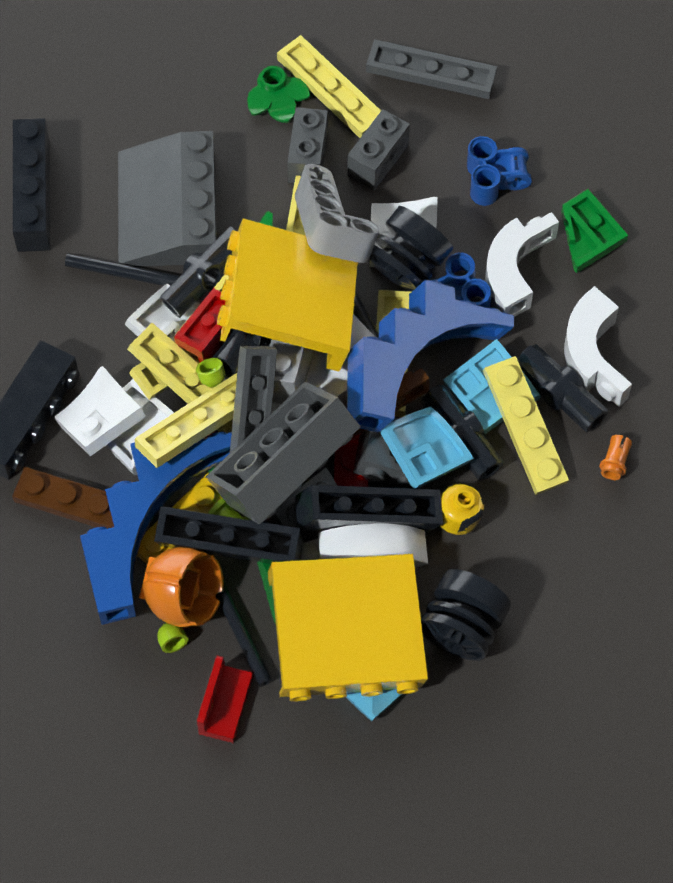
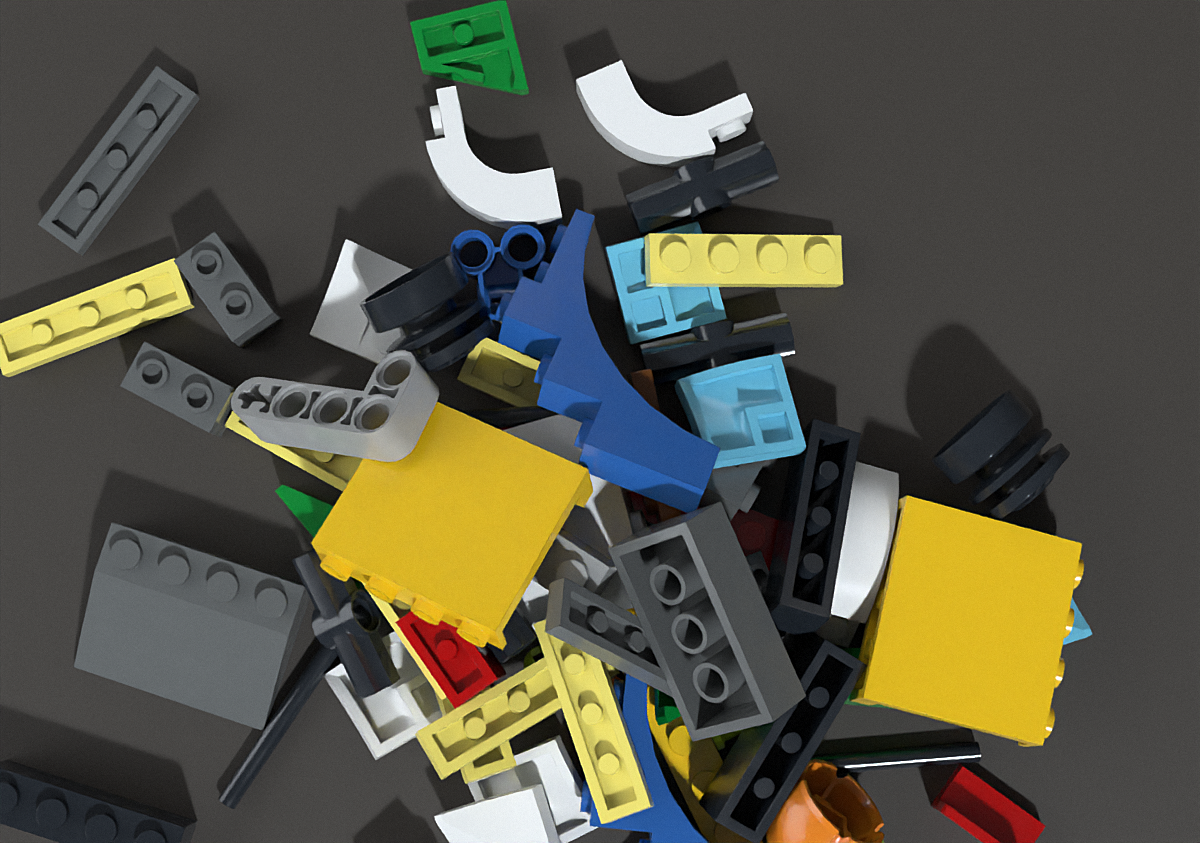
camera: 70 degrees left, 20 degrees up
(211, 372) = (524, 672): lime hinge -> none
(276, 98) = (77, 400): green plate -> none
(461, 509) = (845, 384): yellow head -> none
(496, 170) = (330, 129): blue piece -> none
(614, 464) = (831, 159): orange pin -> none

